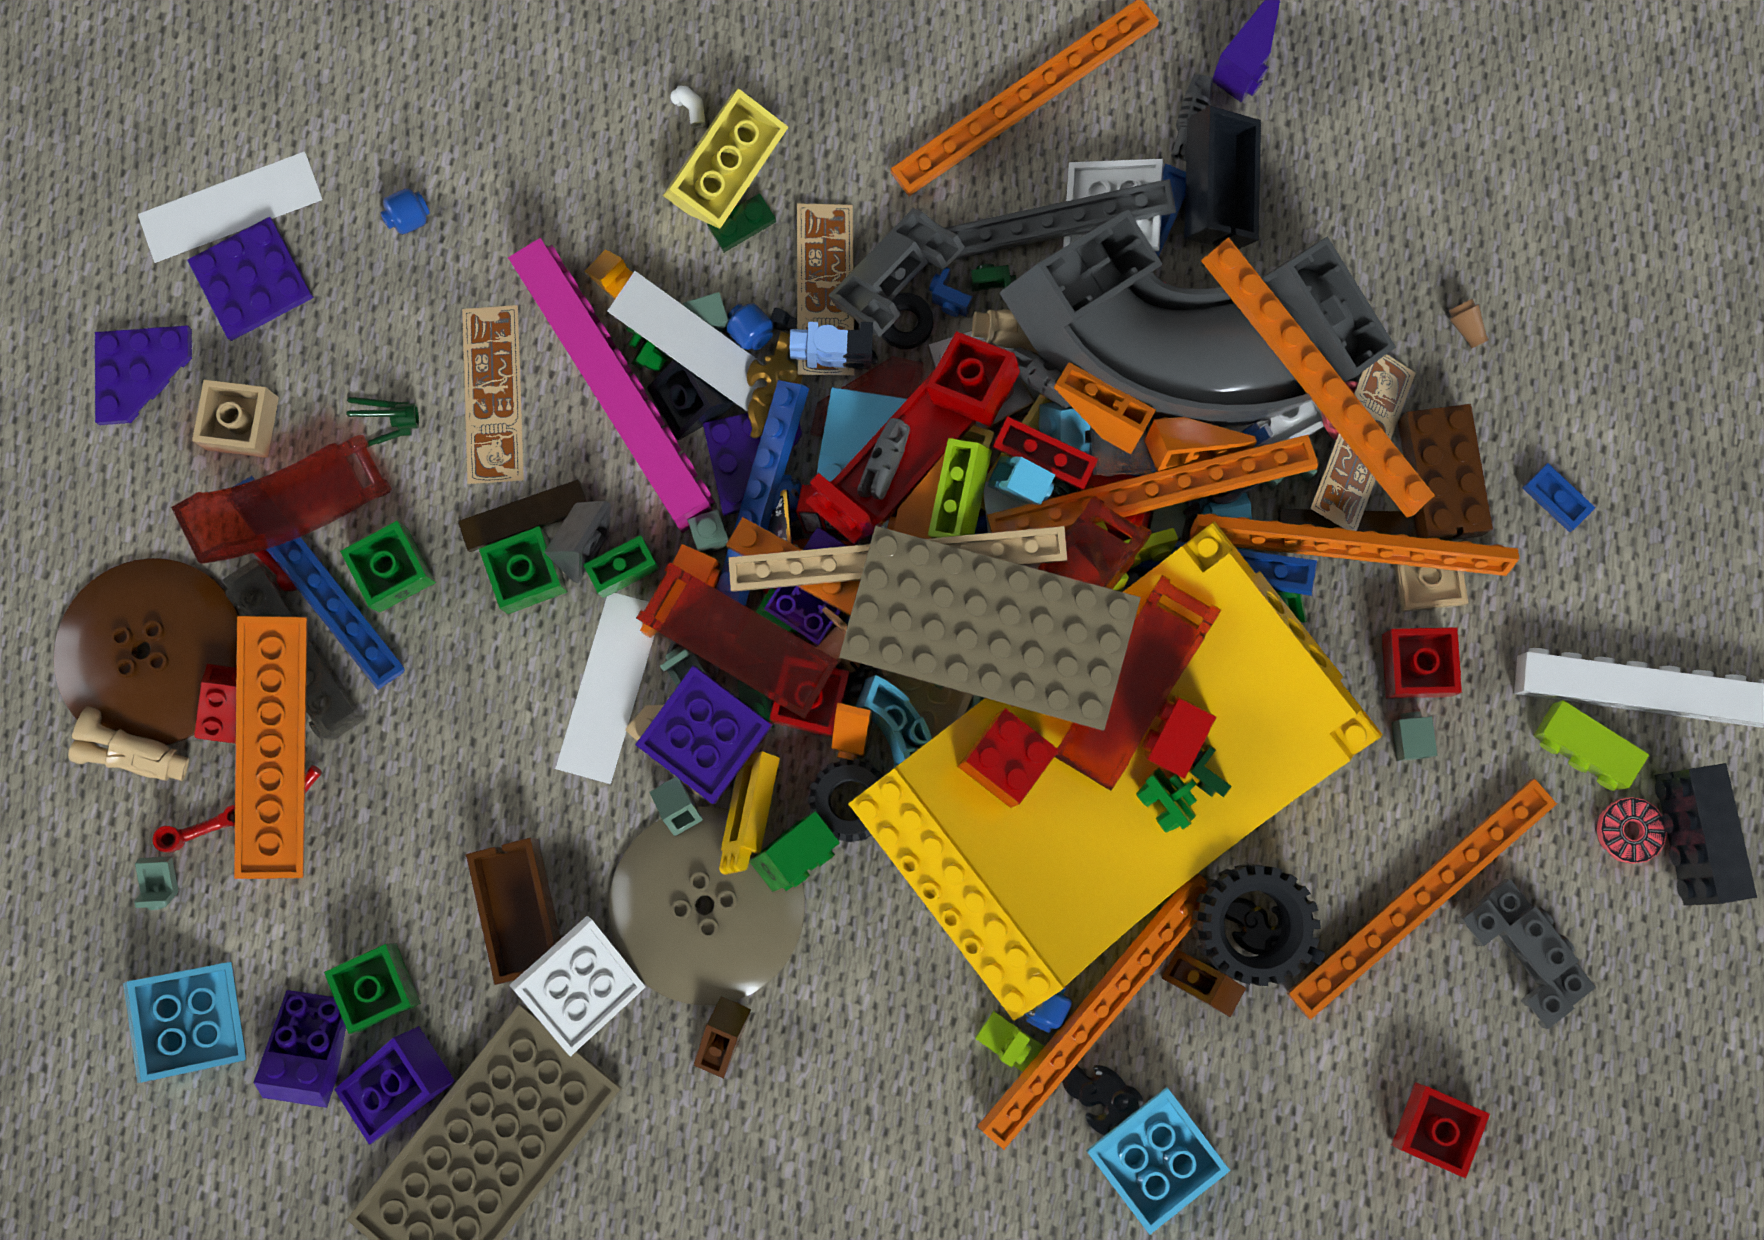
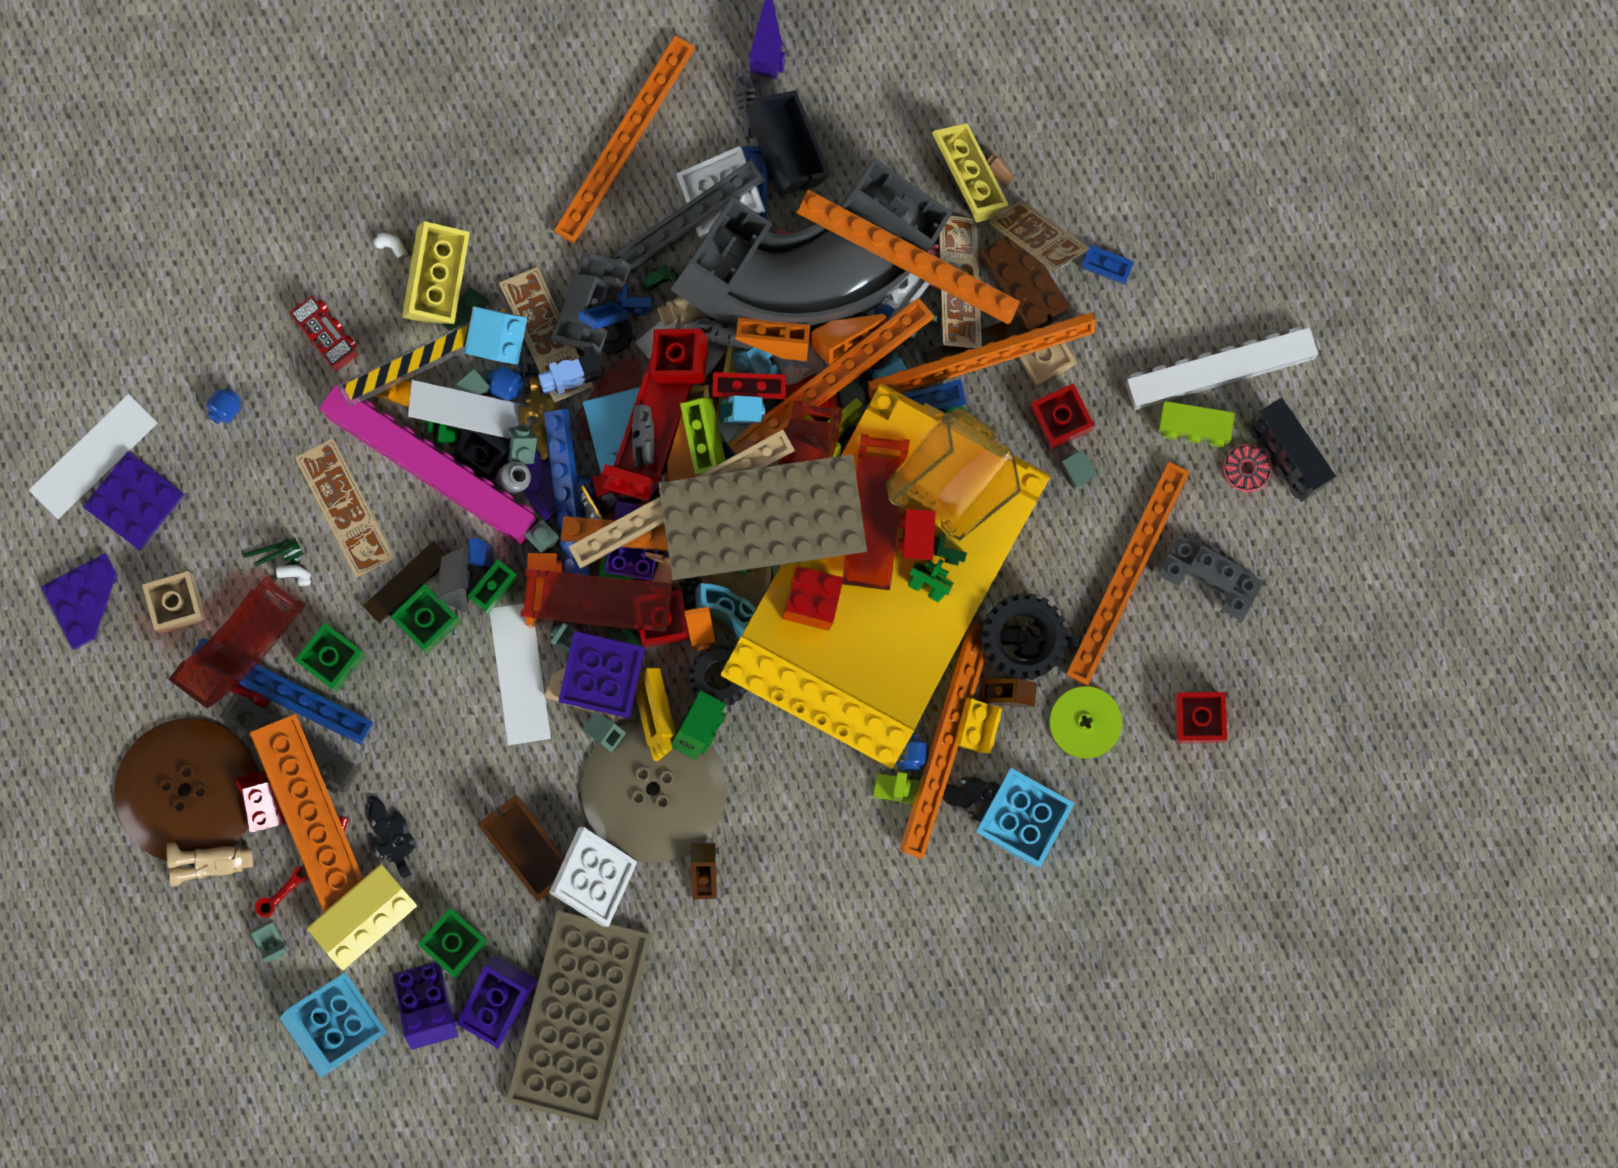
camera: 30 degrees left, 0 degrees up
(277, 904) = (362, 916): none -> light yellow slope
(371, 812) = (395, 829): none -> black piece
(404, 452) = (294, 571): none -> white arm
(563, 175) = (324, 332): none -> brick
(624, 518) = (480, 553): none -> blue tile
(667, 250) = (406, 364): none -> tile
(715, 443) = (513, 477): none -> light grey head
(733, 408) = (522, 444): none -> sand green bracket
(762, 261) = (495, 335): none -> medium azure slope
(904, 293) = (603, 315): none -> blue tile
(1147, 1010) = (978, 726): none -> yellow bracket
(1266, 682) = (957, 473): none -> clear yellow windscreen
(1306, 1084) = (1079, 740): none -> lime piece
(1435, 309) = (971, 171): none -> light yellow slope
(1496, 424) = (1039, 235): none -> sticker

